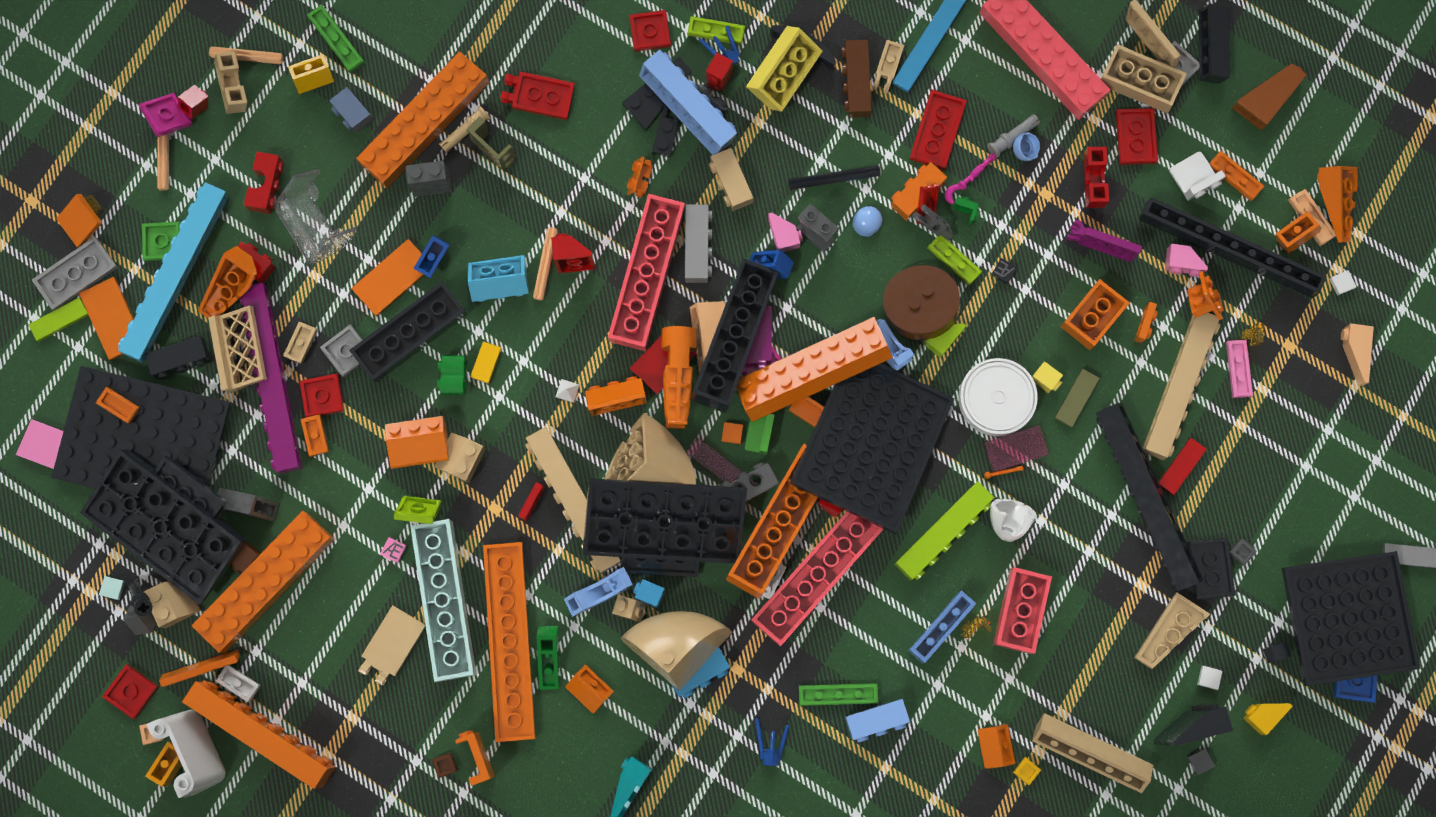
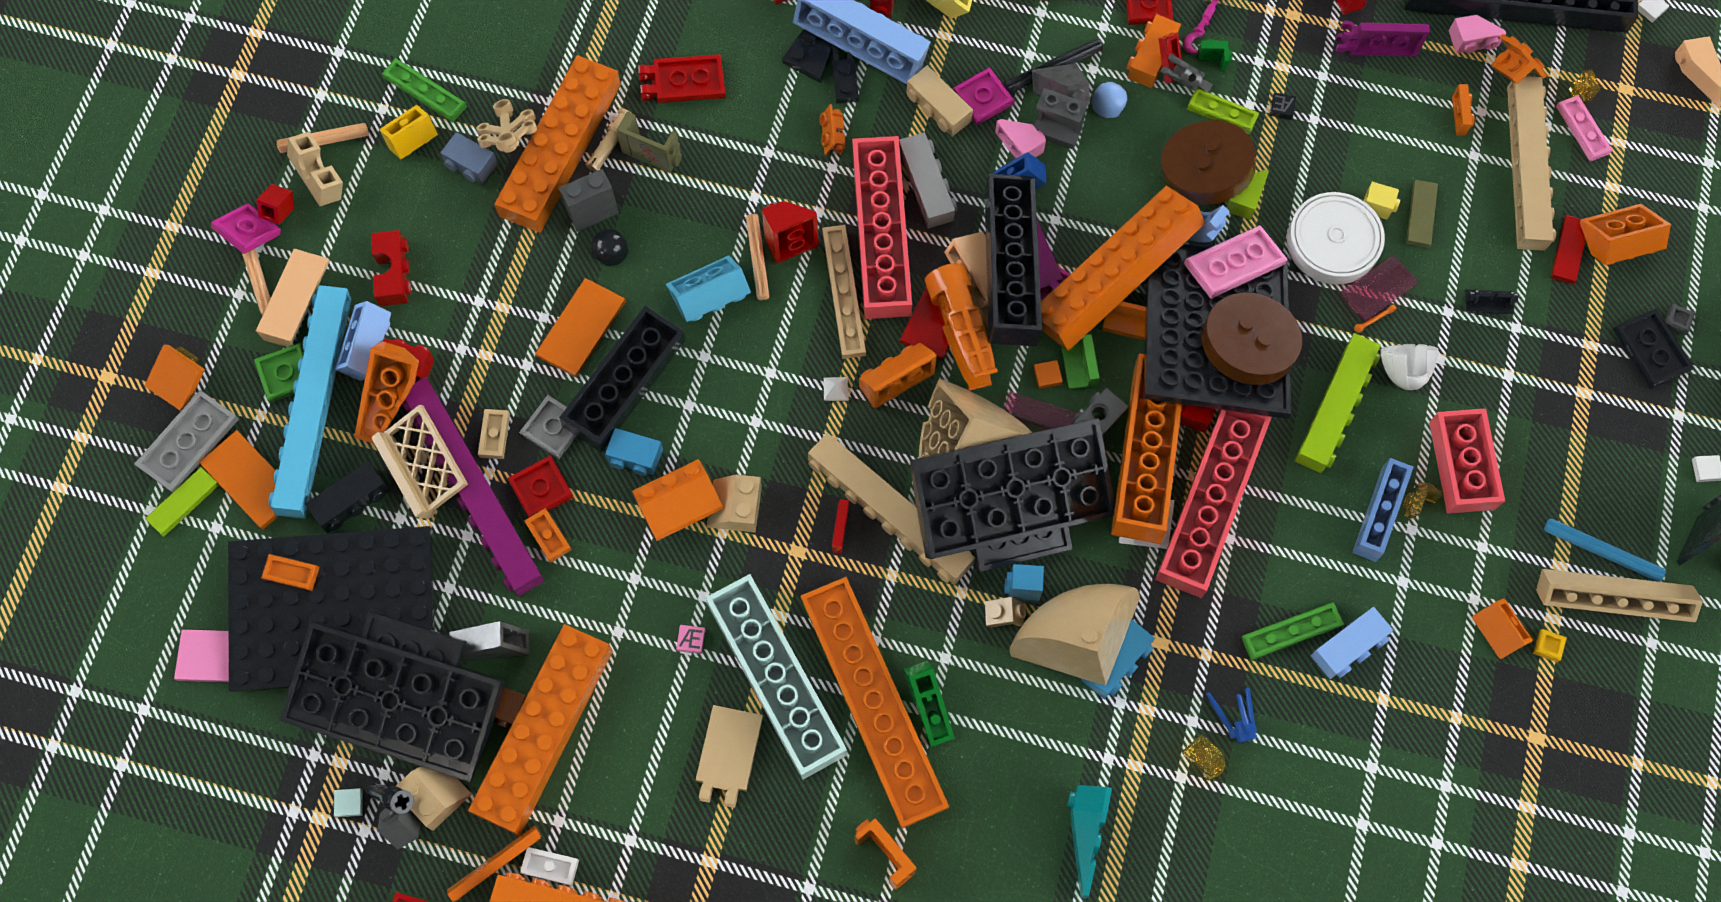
camera: 20 degrees left, 10 degrees down
(183, 183) = (292, 297): none -> light nougat brick
(225, 235) = (364, 331): none -> light blue brick
(306, 222) = (453, 296): clear windscreen -> none
(381, 111) = (507, 140): none -> tan plant
(399, 392) = (634, 452): none -> dark azure brick
(417, 509) = (706, 578): lime tile -> none
(432, 256) = (621, 284): blue slope -> none
(435, 219) = (609, 247): none -> black hair
(444, 765) = (847, 880): reddish brown tile -> none
(453, 375) = (693, 413): green brick -> none
(486, 362) = (726, 387): yellow tile -> none
(589, 689) = (992, 725): orange panel -> none
(598, 592) = (964, 603): light blue arch -> none
(600, 314) = (843, 292): none -> tan plate
(734, 766) = (1205, 757): none -> clear yellow bracket
(769, 185) = (984, 95): none -> dark pink tile
(831, 199) = (1063, 80): none -> flat silver slope
(892, 462) = (1251, 338): none -> reddish brown brick
(909, 392) = (1235, 261): none -> bright pink tile
(1094, 314) = (1404, 117): orange brick -> none
(1099, 488) = (1490, 301): none -> black hinge
(1100, 713) = (1605, 550): none -> dark azure axle
(1149, 497) = (1552, 290): black brick -> none
(1172, 627) = (1640, 429): tan wing -> none
(1228, 469) = (1625, 234): none -> orange slope

